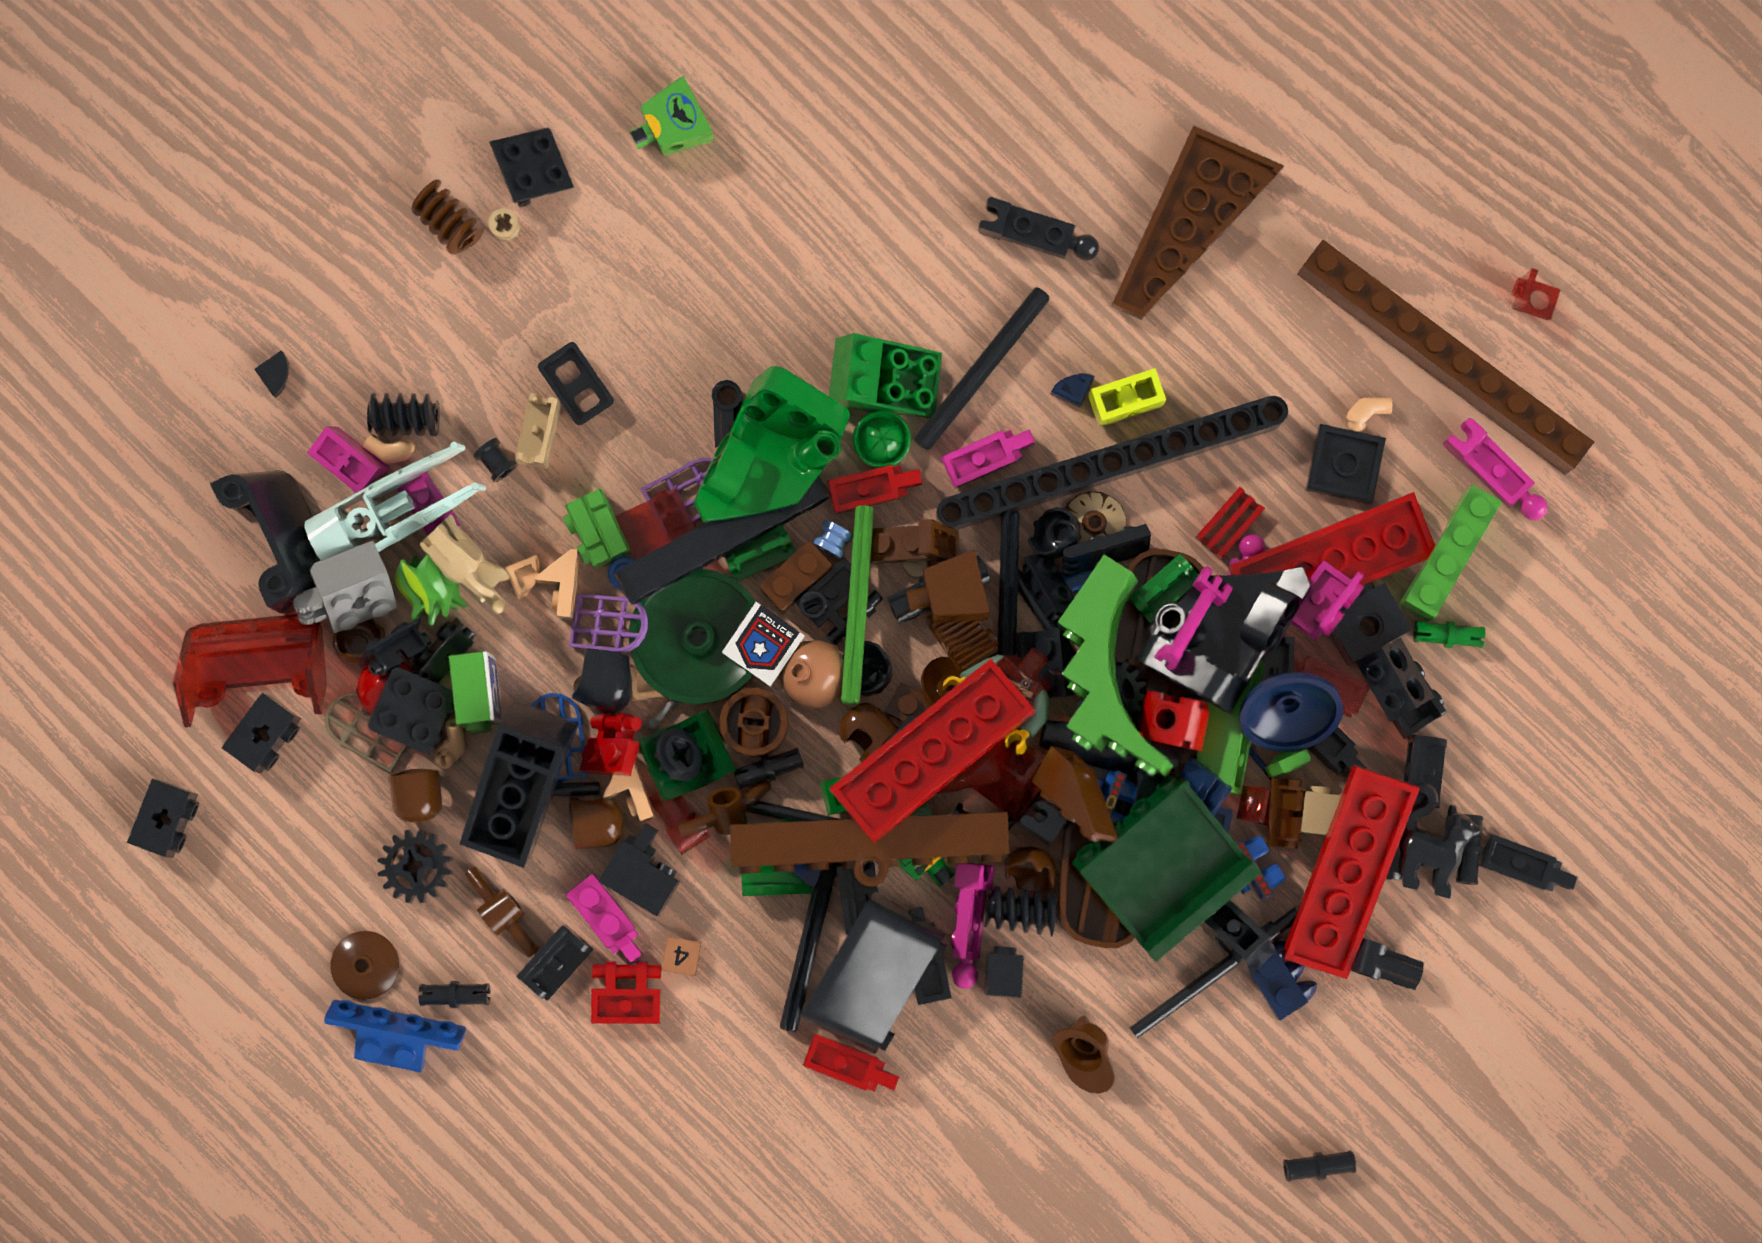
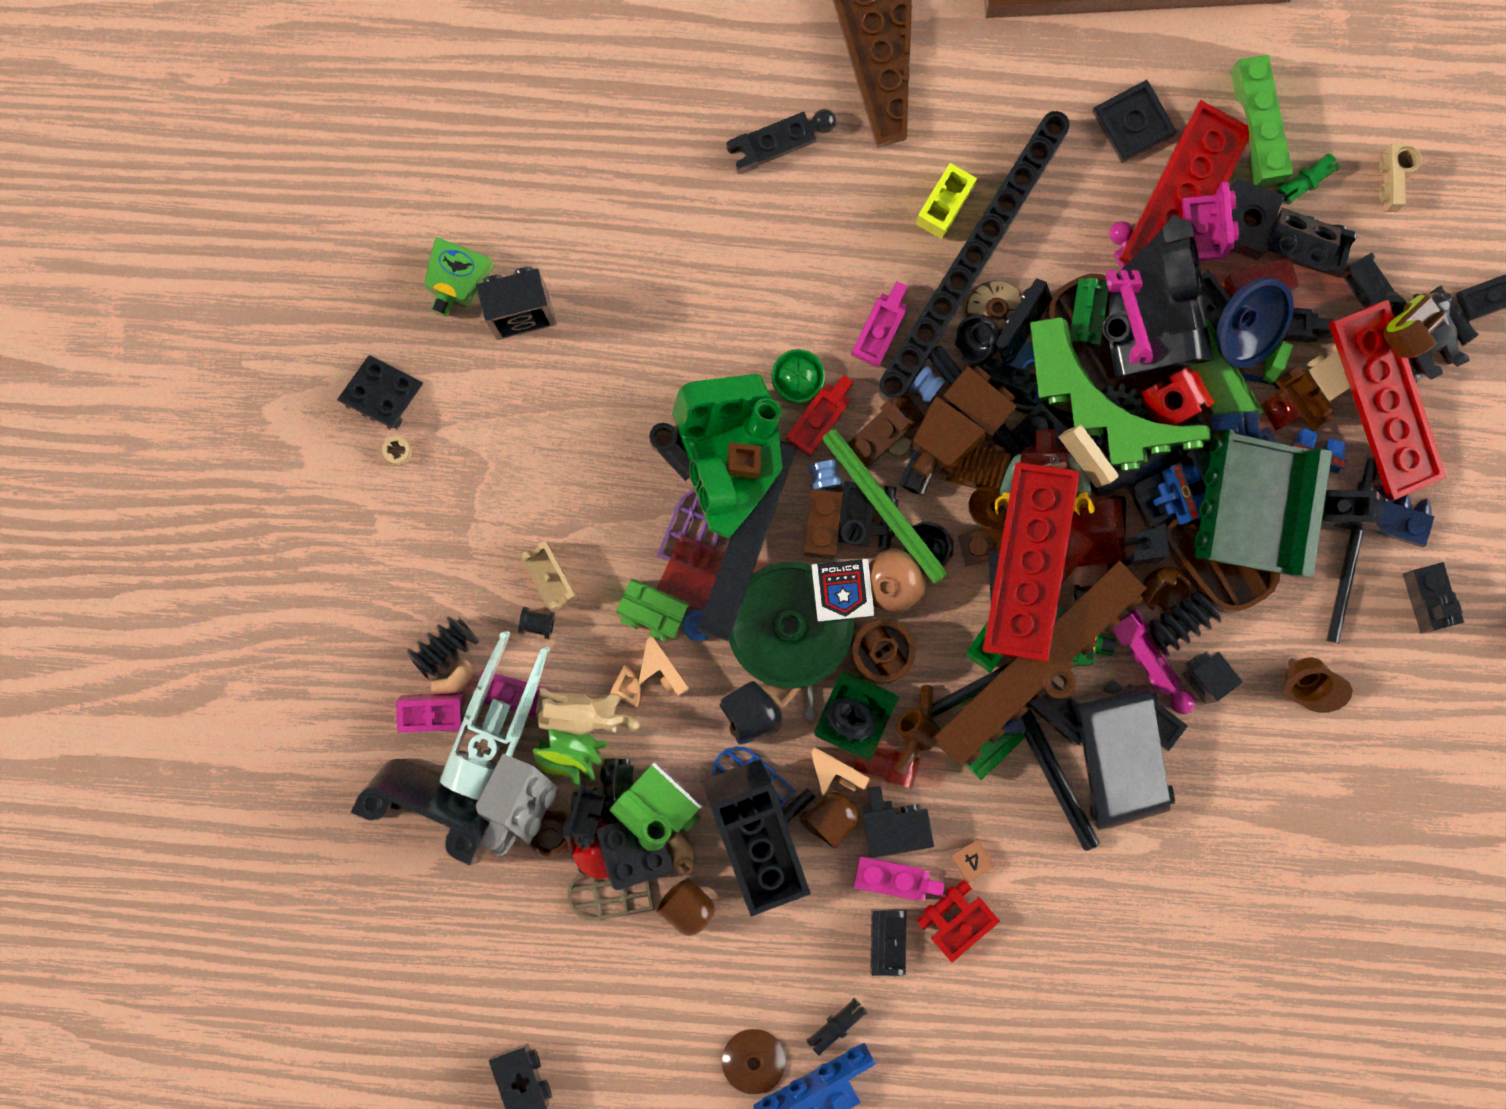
camera: 35 degrees left, 0 degrees up
(246, 655) = (481, 911): clear red windscreen -> none
(246, 742) = (528, 944): black brick -> none
(274, 373) = (322, 695): black tile -> none
(417, 882) = (721, 972): black gear -> none
(435, 686) = (639, 818): none -> bright green piece
(444, 219) = (351, 482): reddish brown piece -> none
(501, 912) = (819, 939): reddish brown piece -> none
(587, 379) = (551, 510): black piece -> none
(598, 630) = (715, 681): medium lavender window -> none
(609, 754) = (801, 762): red plate -> none
(699, 184) = (516, 303): none -> black brick
(760, 554) = (783, 529): green hinge -> none
(768, 768) = (919, 675): black pin -> none
(772, 469) = (744, 460): none -> reddish brown tile
(848, 1064) = (1156, 835): red hinge -> none
(872, 721) = (967, 578): reddish brown helmet -> none
(884, 376) = (761, 330): green slope -> none
(981, 536) = (927, 385): none -> medium blue wheel
(982, 368) = (824, 267): black axle -> none
(1011, 584) = (980, 399): none -> reddish brown brick
(1055, 704) = (1088, 456): none -> tan tile
(1073, 388) = (901, 227): dark blue tile -> none
(1075, 789) = (1155, 503): reddish brown slope -> none
(1246, 1067) = (1433, 598): none -> black hinge
(1248, 502) = (1091, 203): red tile -> none
(1365, 409) = (1115, 71): light nougat arm -> none
(1379, 962) = (1461, 445): black piece -> none
(1417, 827) = (1411, 330): none -> reddish brown animal
(1496, 469) = (1241, 37): dark pink plate -> none
(1511, 703) = (1393, 190): none -> tan plate

